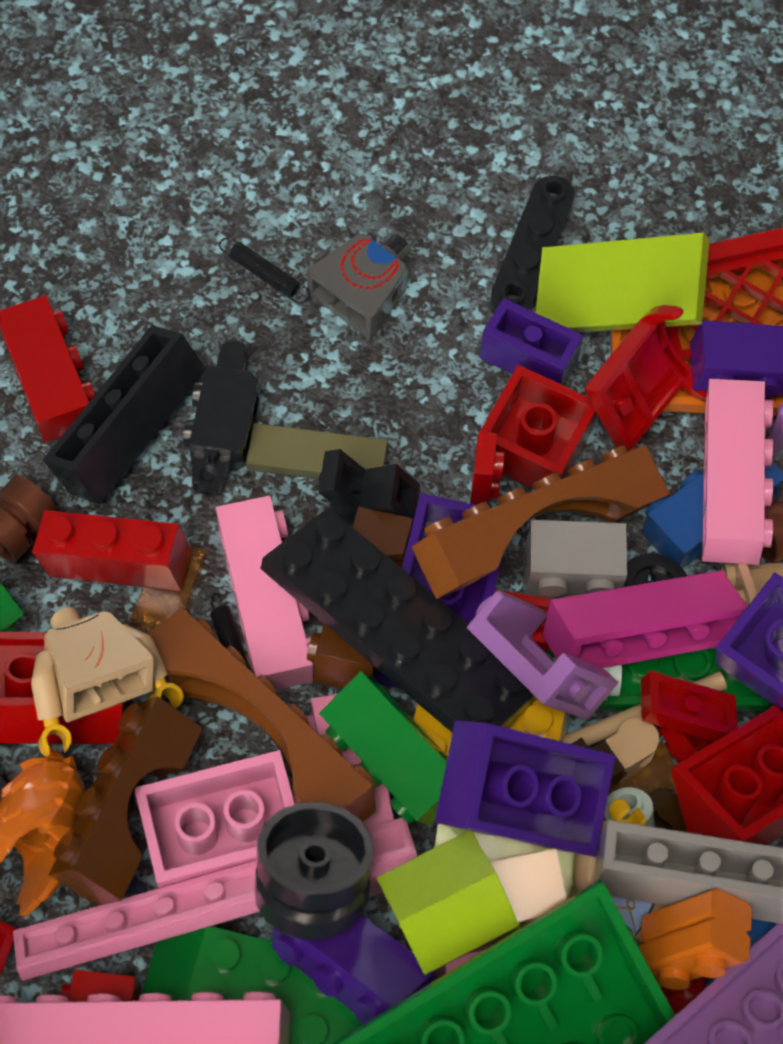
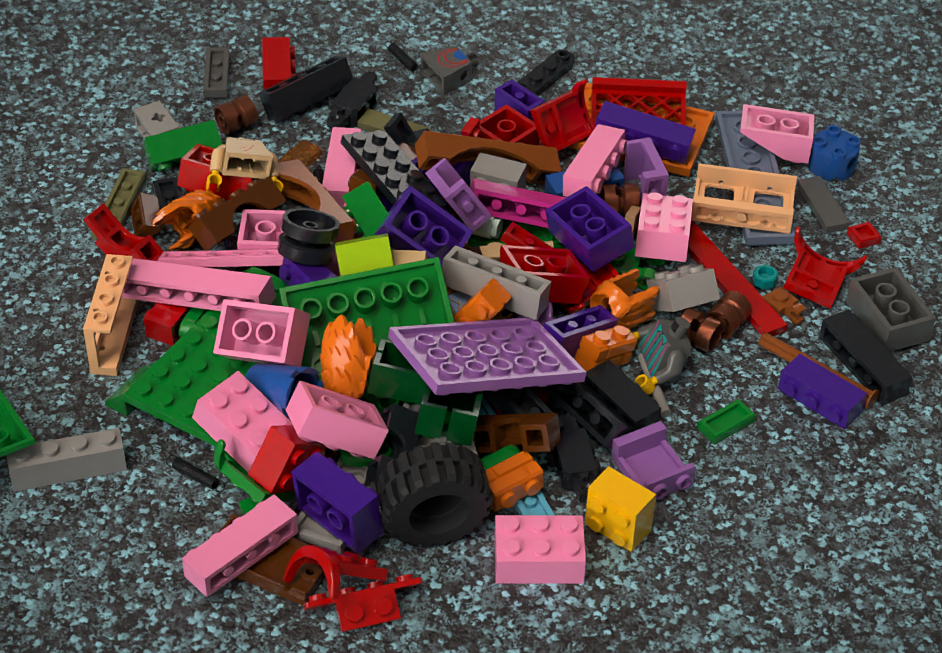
camera: 20 degrees right, 20 degrees down
(112, 550) = (277, 132): red brick -> none
(621, 280) = (561, 81): lime tile -> none

